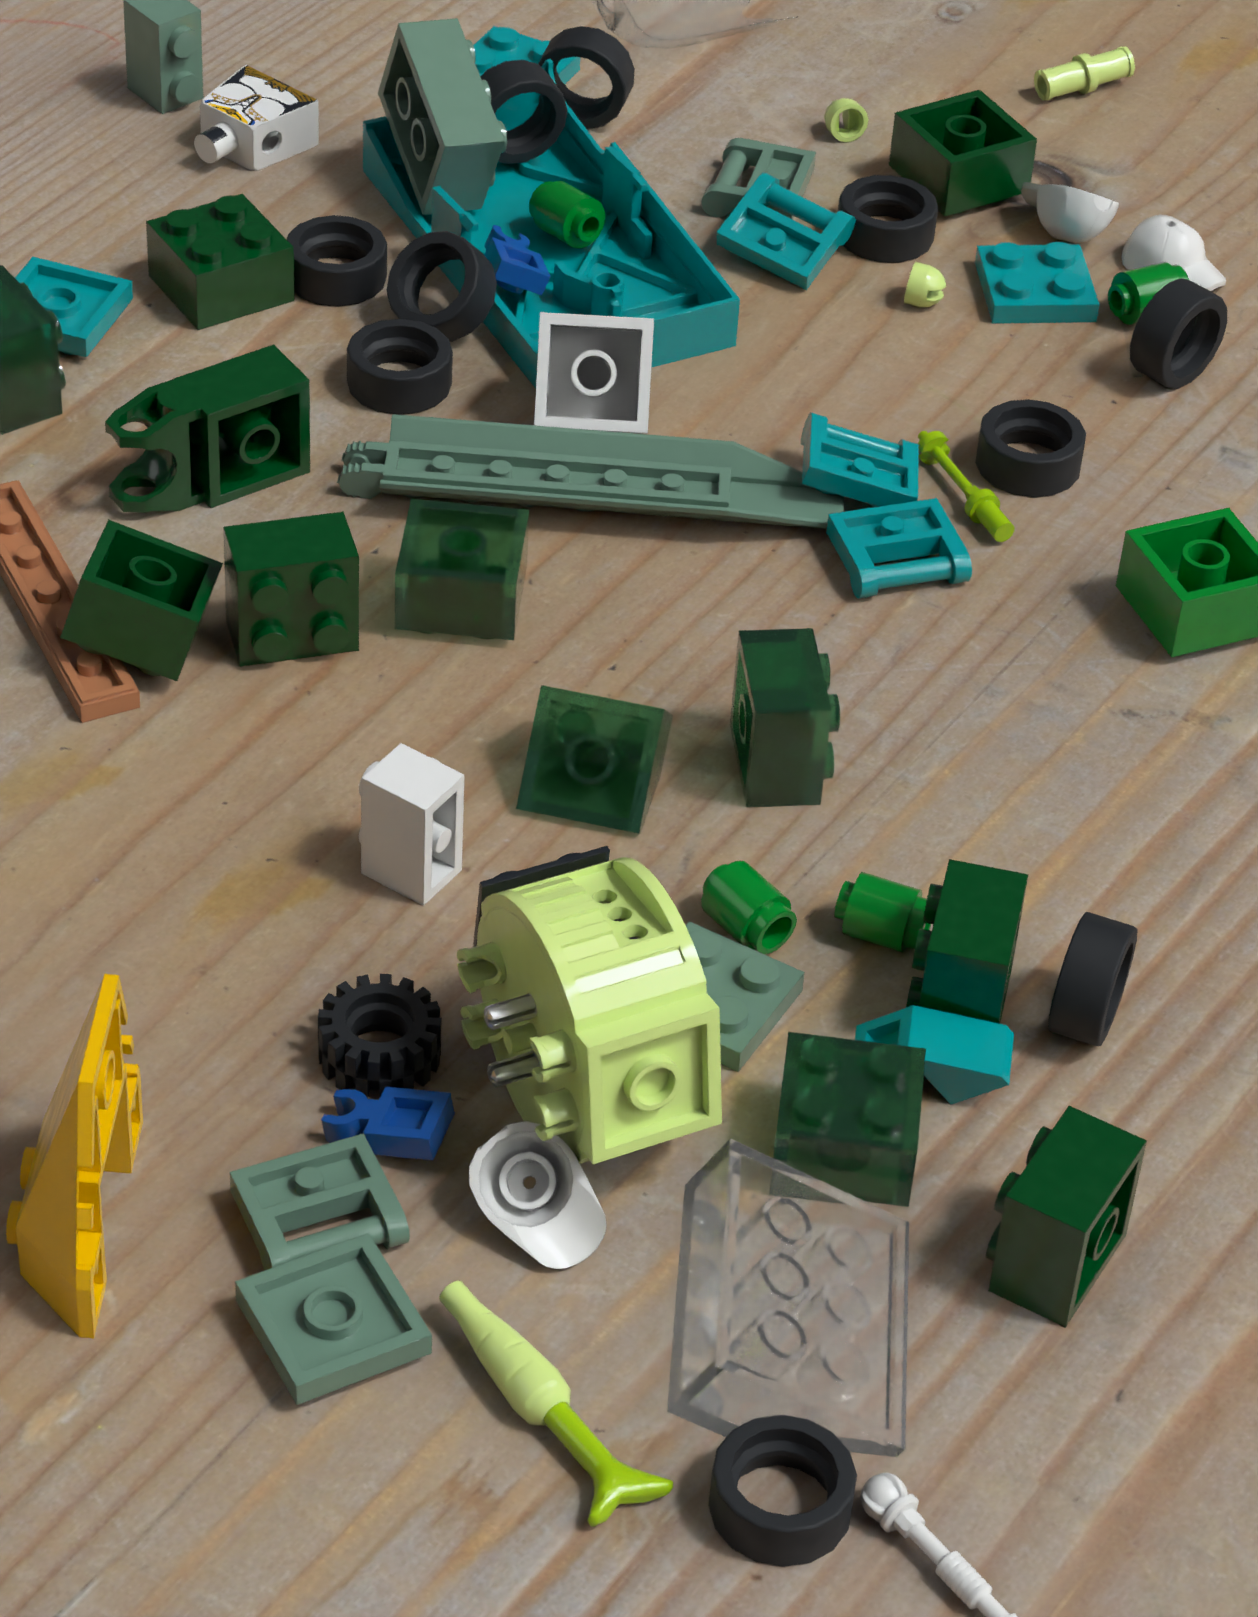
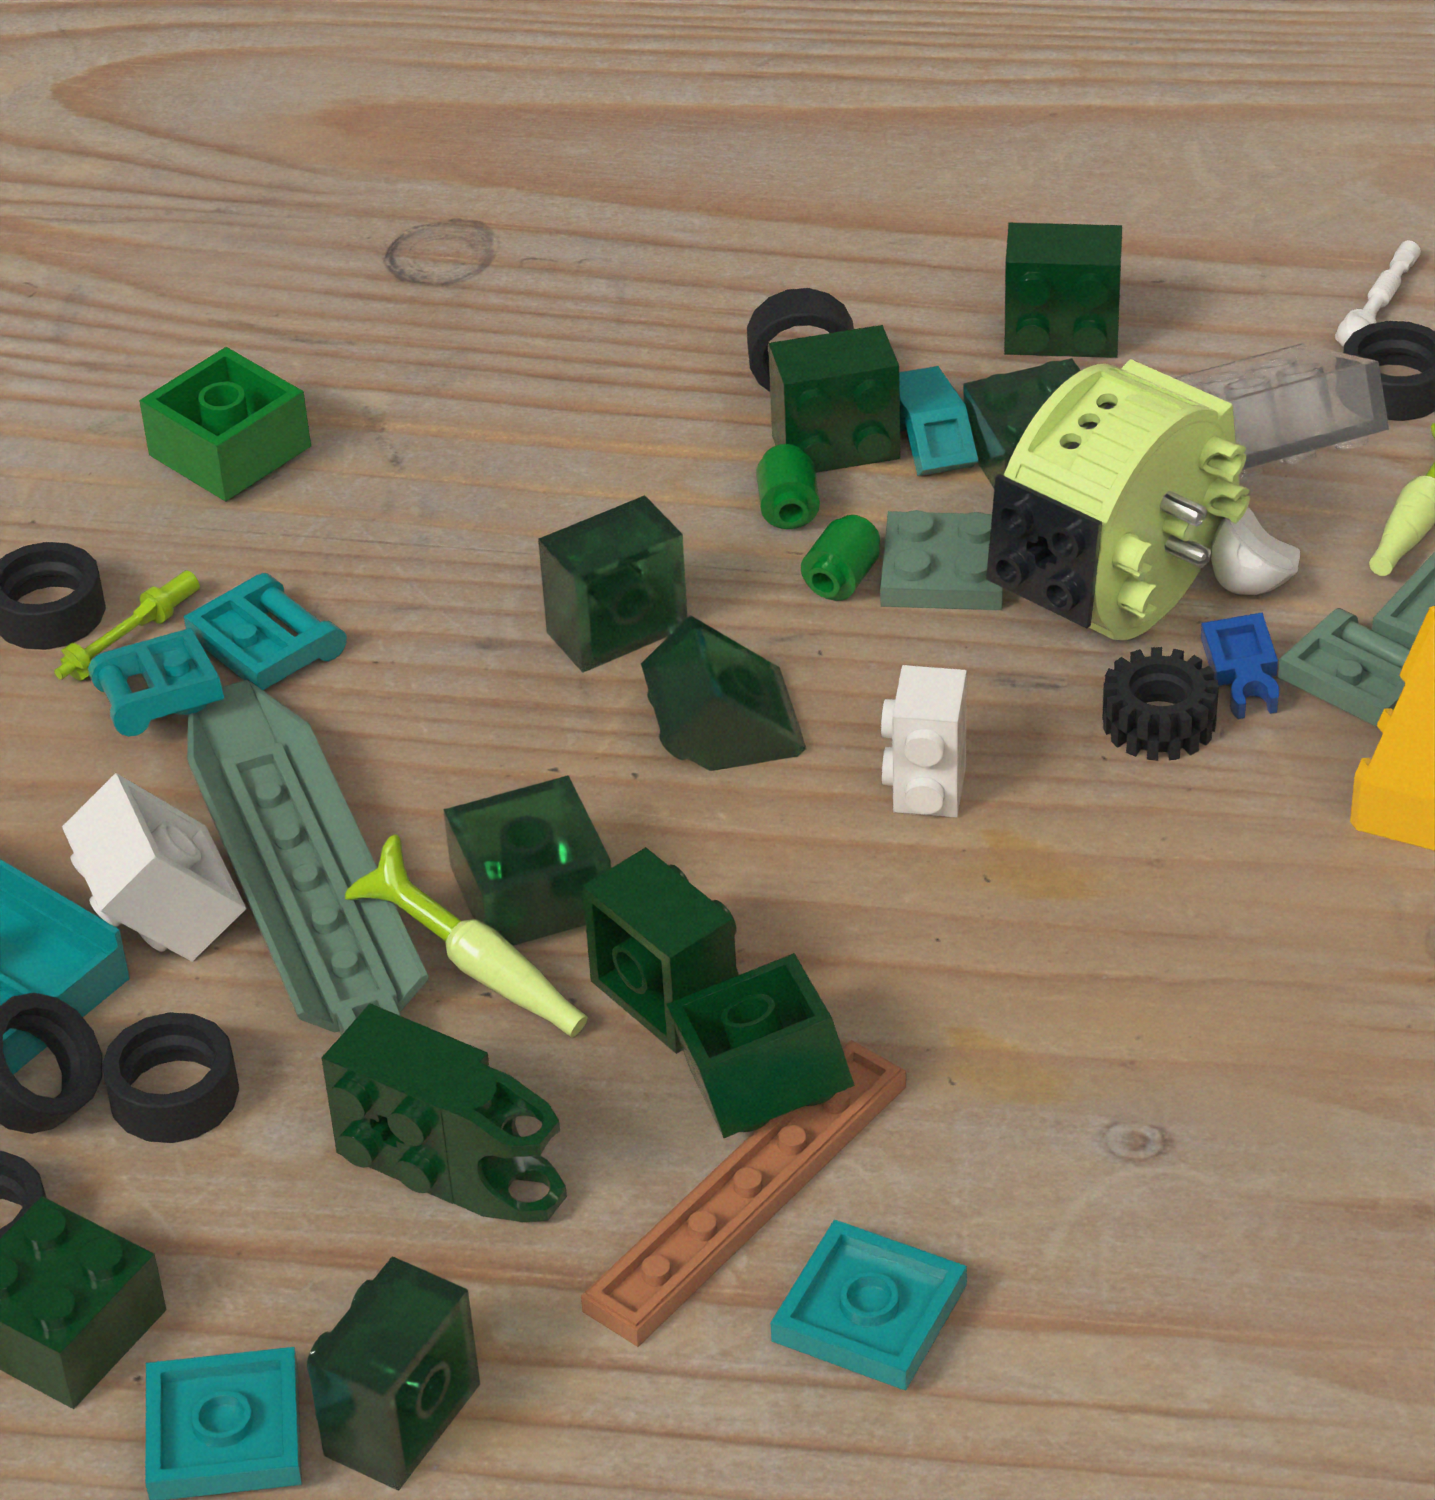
camera: 110 degrees left, 0 degrees up
(384, 525) = (469, 943): none -> yellowish green piece

